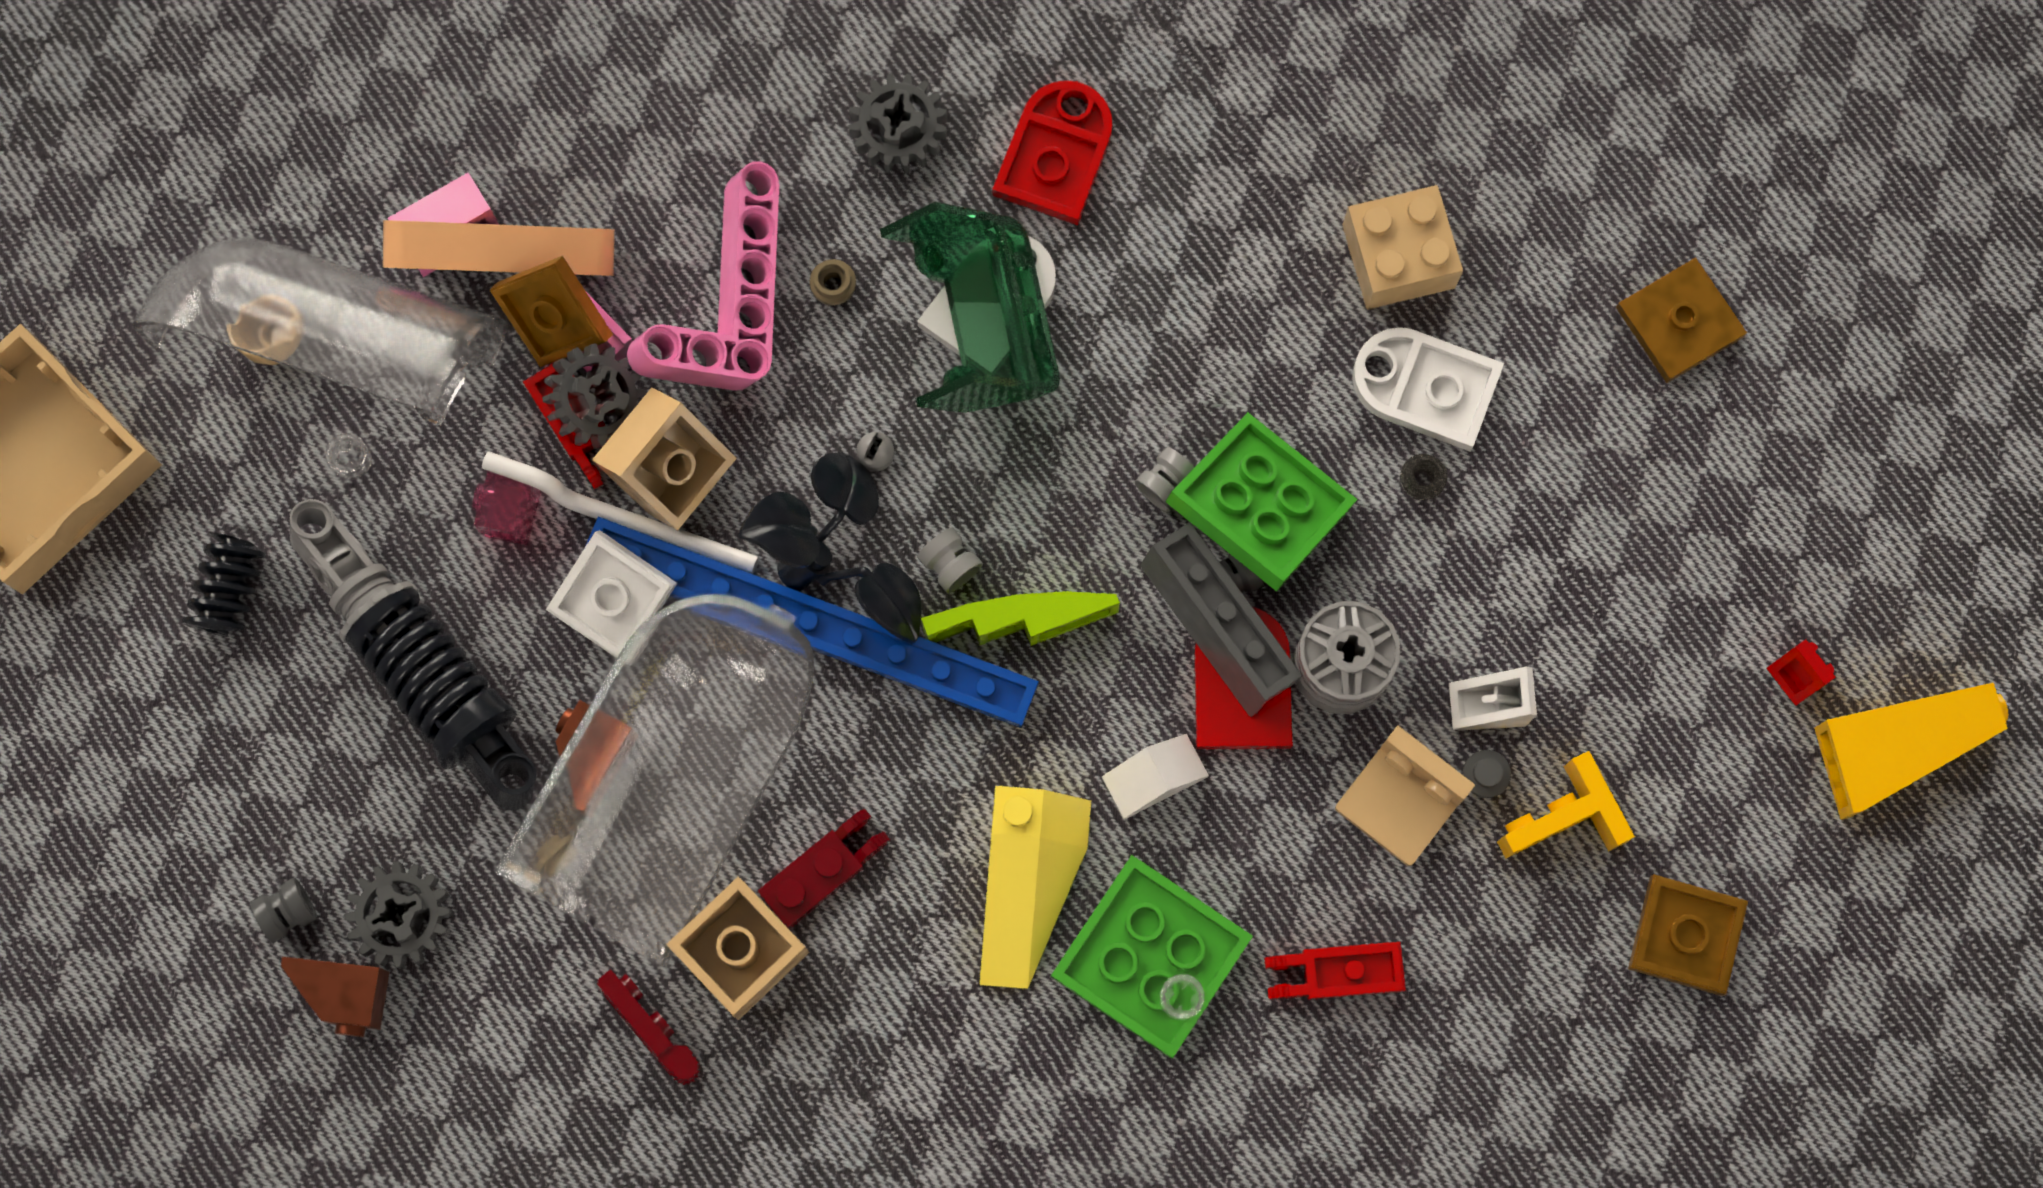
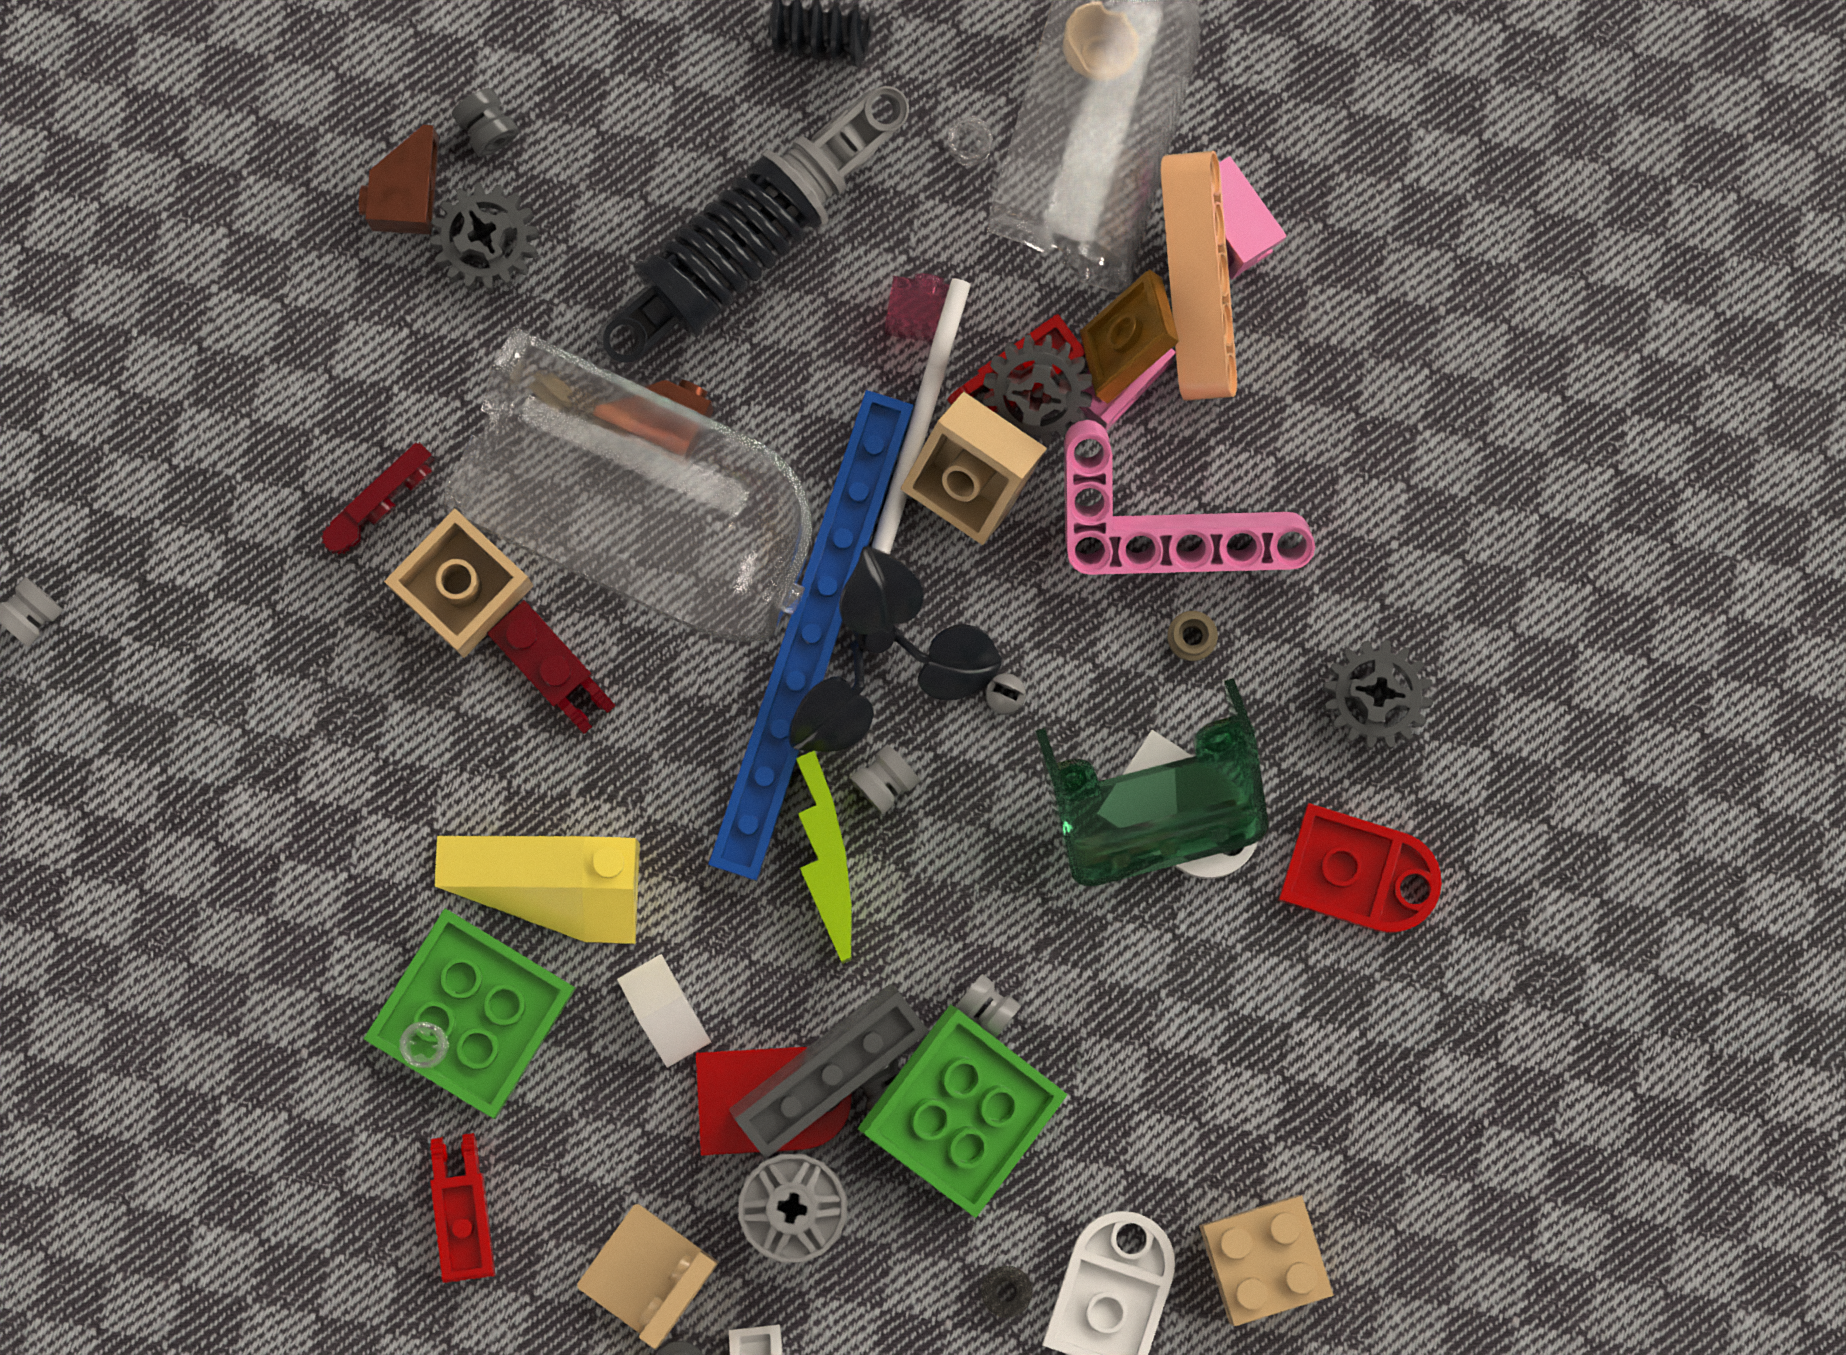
camera: 85 degrees right, 5 degrees up
(610, 593) = (828, 425): white tile -> none

